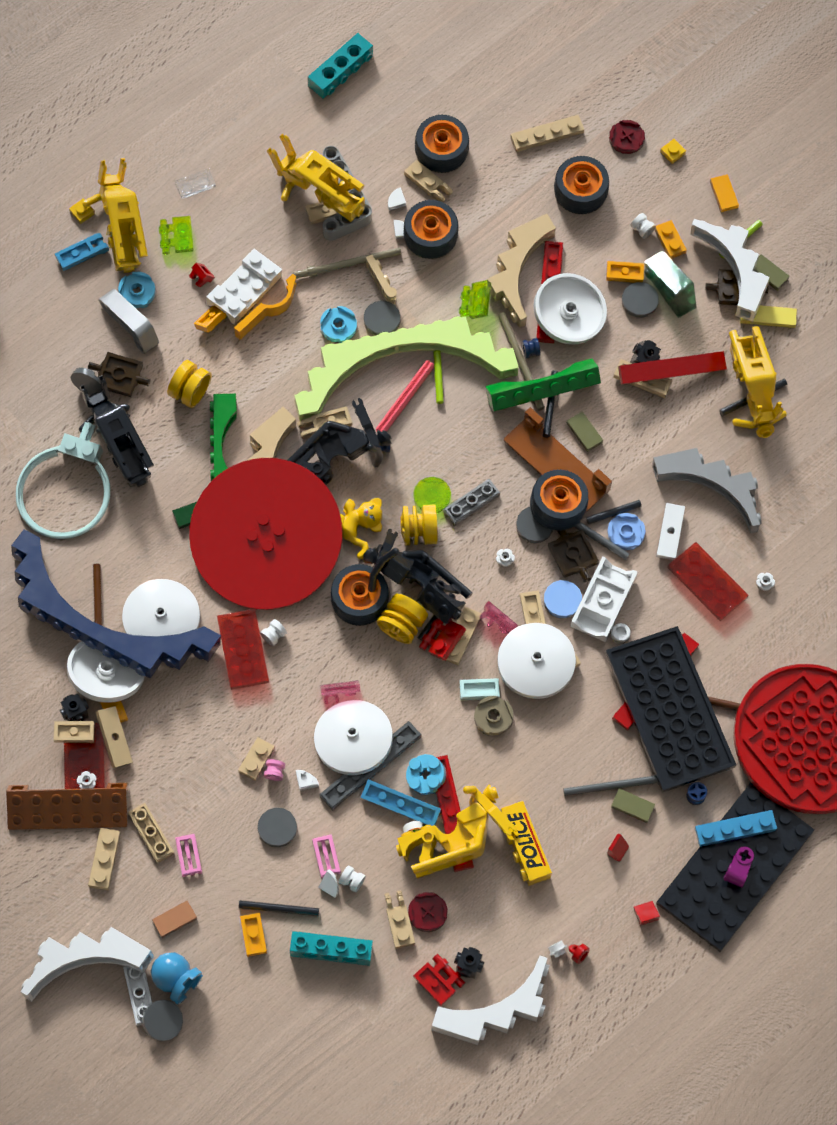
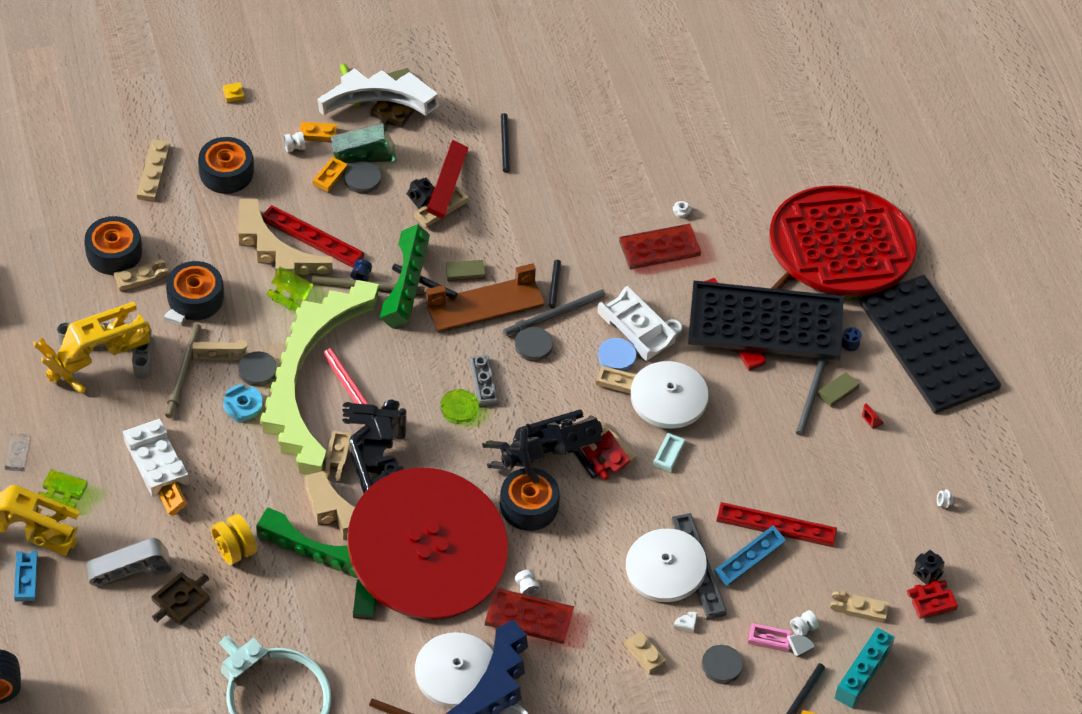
camera: 65 degrees left, 15 degrees down
(86, 377) = (177, 622): dark grey tile -> none
(119, 435) = (250, 605): black piece -> none
(146, 285) = (92, 537): medium azure plate -> none
(202, 272) = (116, 485): red tile -> none
(264, 310) = (183, 423): light orange piece -> none
(274, 770) = (666, 640): bright pink wheel -> none
(318, 212) = (117, 366): tan plate -> none
(348, 688) = (611, 557): clear pink plate -> none
(367, 515) = (454, 460): yellow animal -> none
(396, 199) = (144, 306): white tile -> none
(402, 618) = (574, 473): yellow wheel -> none
(412, 826) = (779, 557): white tile -> none
(419, 525) = (489, 420): yellow wheel -> none
(427, 912) = (862, 581): dark red tile -> none
(433, 781) = (721, 527): medium azure plate -> none
(438, 377) = (344, 352): lime bar -> none
(464, 842) = (815, 510): yellow piece -> none
(469, 1024) = (989, 566): white arch -> none
(496, 705) = (701, 461): dark tan plate -> none
(502, 561) = (553, 382): white plate -> none
(504, 623) = (611, 406): clear pink plate -> none
(527, 845) = (836, 478): yellow brick -> none
(559, 499) = (527, 308): wheel -> none
(570, 308) = (343, 224): white dish -> none
(573, 554) = (579, 327): dark brown plate -> none
(579, 952) = (956, 483): red tile -> none
(626, 137) = (196, 117): dark red tile -> none
(626, 531) = (578, 282): light blue tile -> none
(646, 913) = (942, 421): slope -> none
(671, 522) = (598, 251): white tile -> none
(690, 467) = (588, 189): light grey arch -> none
(724, 193) = (298, 76): light orange tile -> none
(735, 828) = (899, 323): dark azure plate -> none
(739, 869) = (939, 334): magenta piece -> none
(757, 371) = (504, 115): yellow piece -> none
(774, 317) = (444, 89): light yellow tile -> none

